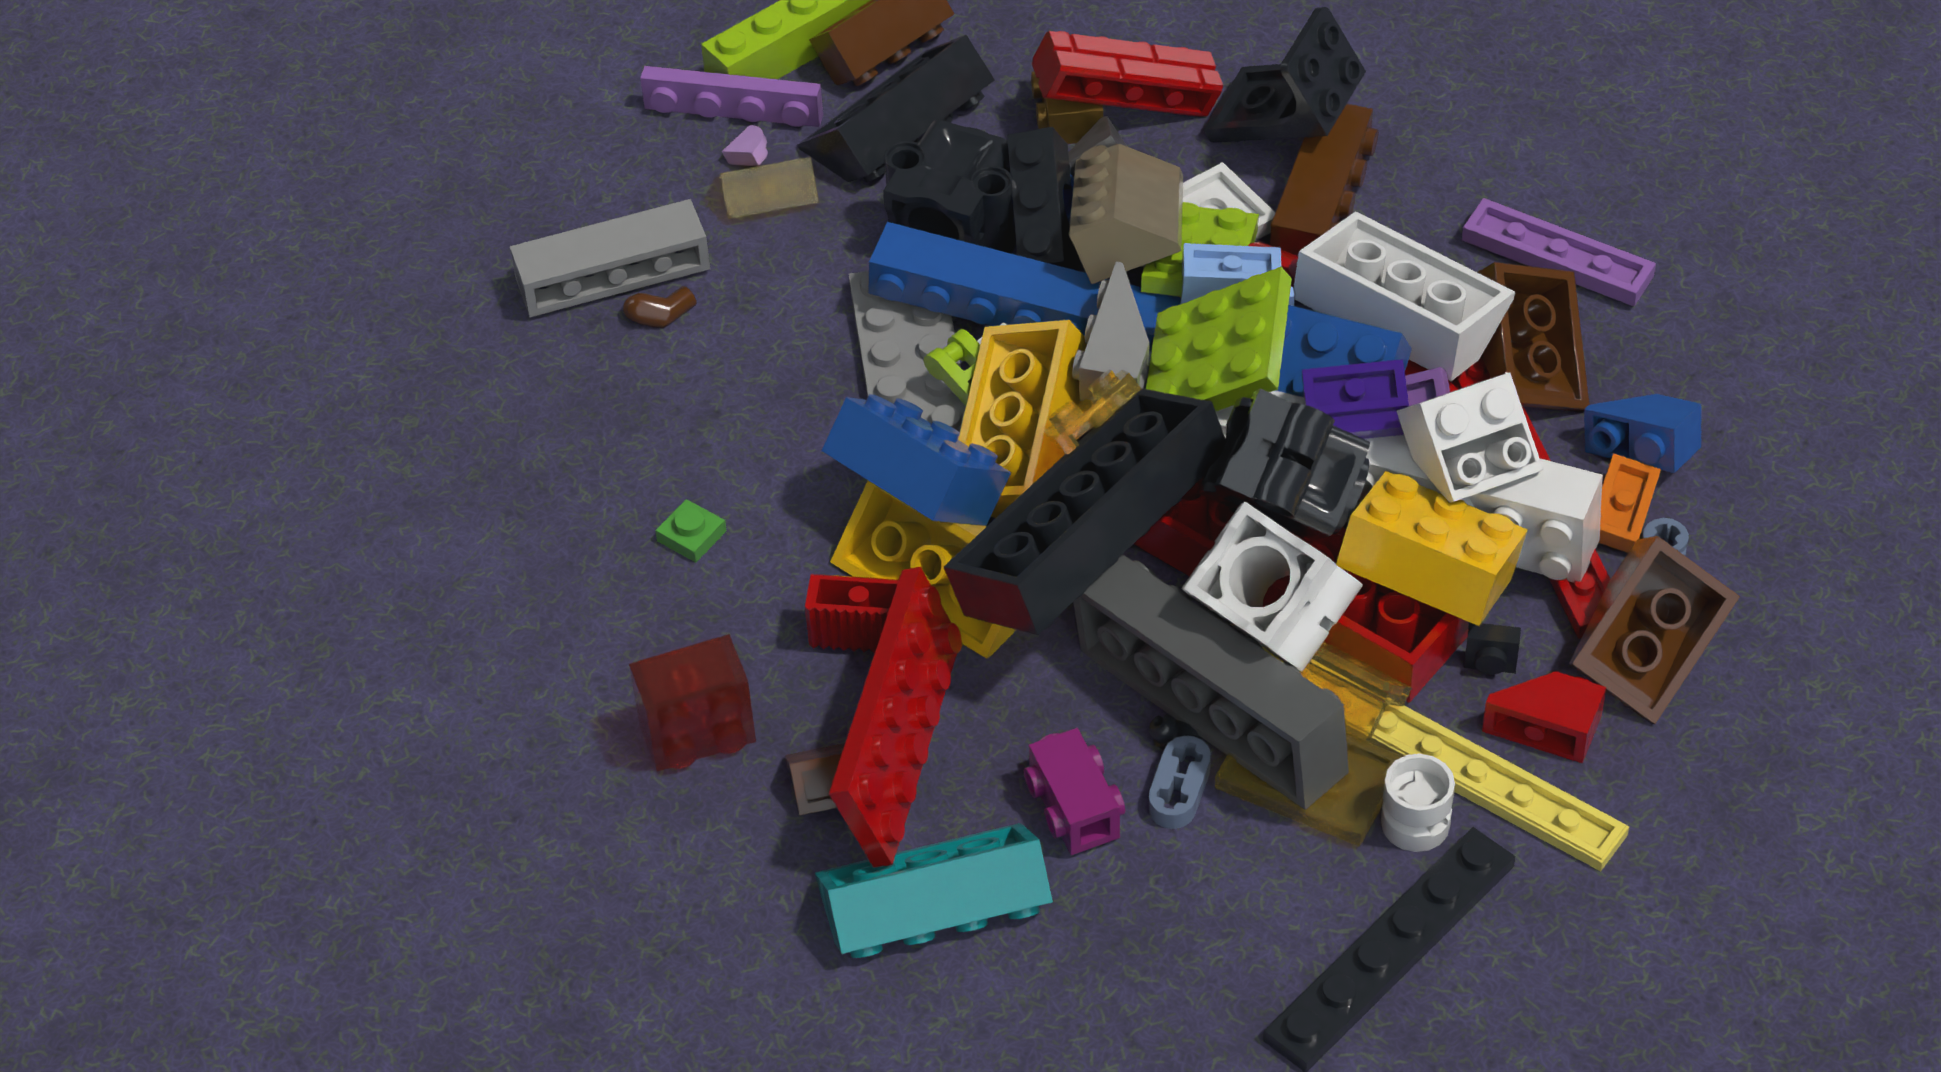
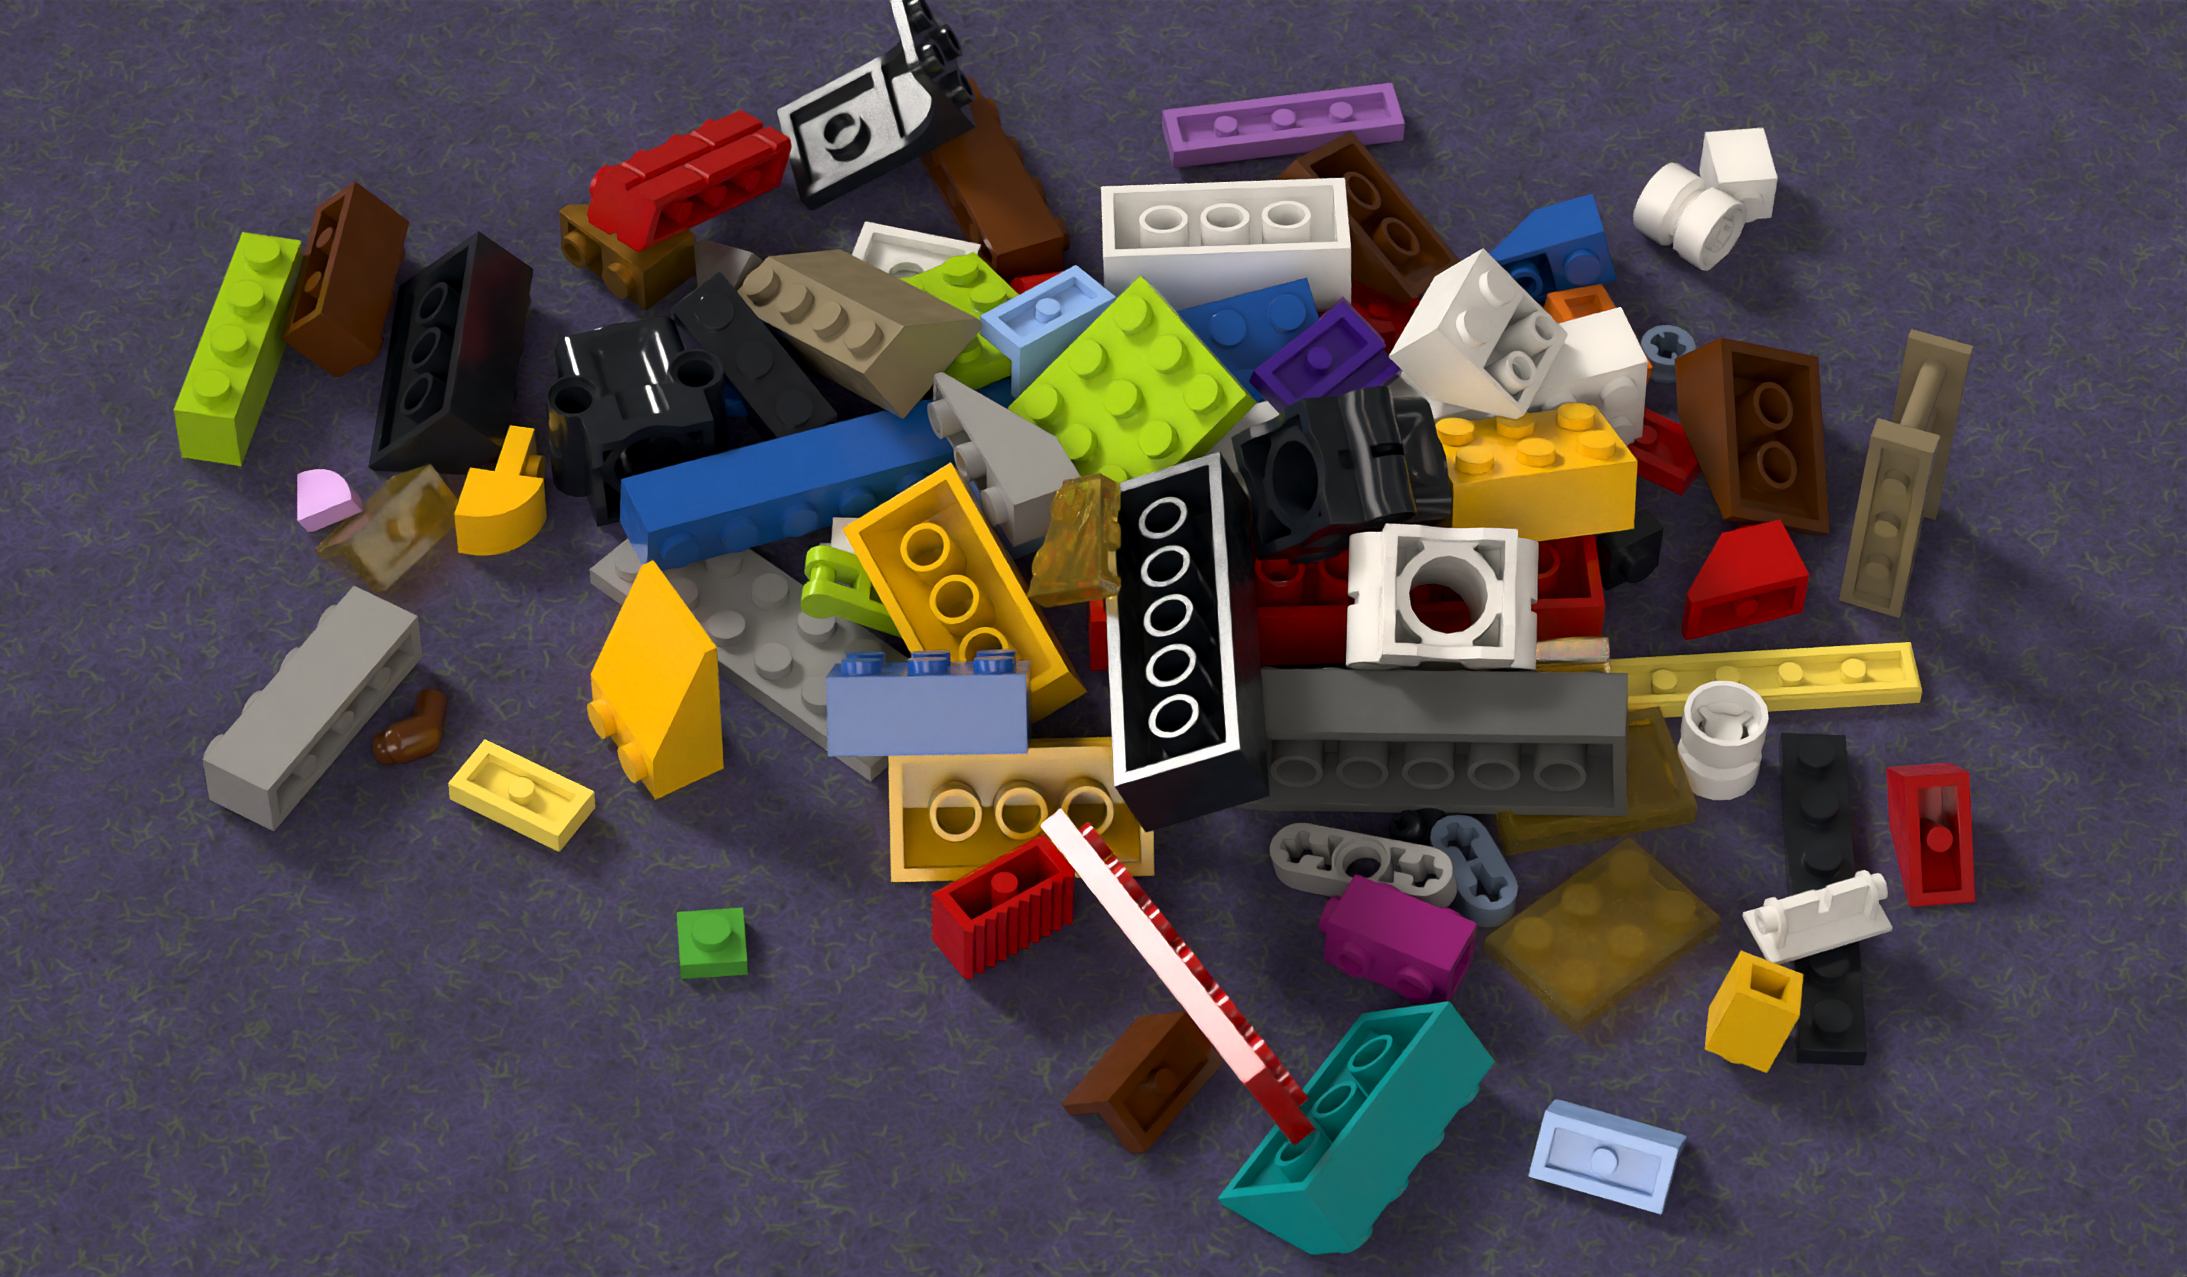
camera: 45 degrees left, 0 degrees up
(674, 379) = (522, 795): none -> light yellow plate
(693, 703) = (944, 1107): clear red brick -> none
(732, 96) = (248, 453): medium lavender plate -> none
(791, 364) = (659, 689): none -> yellow slope
(838, 208) = (504, 505): none -> yellow brick
(1071, 1007) = (1606, 1155): none -> light blue panel
(1103, 715) = (1343, 847): none -> light grey beam
(1220, 876) = (1602, 935): none -> clear yellow plate
(1247, 983) = (1753, 1012): none -> yellow brick
(1350, 954) = (1820, 918): none -> white hinge
(1502, 954) = (1932, 832): none -> red slope
(1663, 689) = (1905, 473): none -> dark tan fence
(1768, 460) = (1684, 213): none -> white wheel
(1836, 455) = (1741, 167): none -> white brick

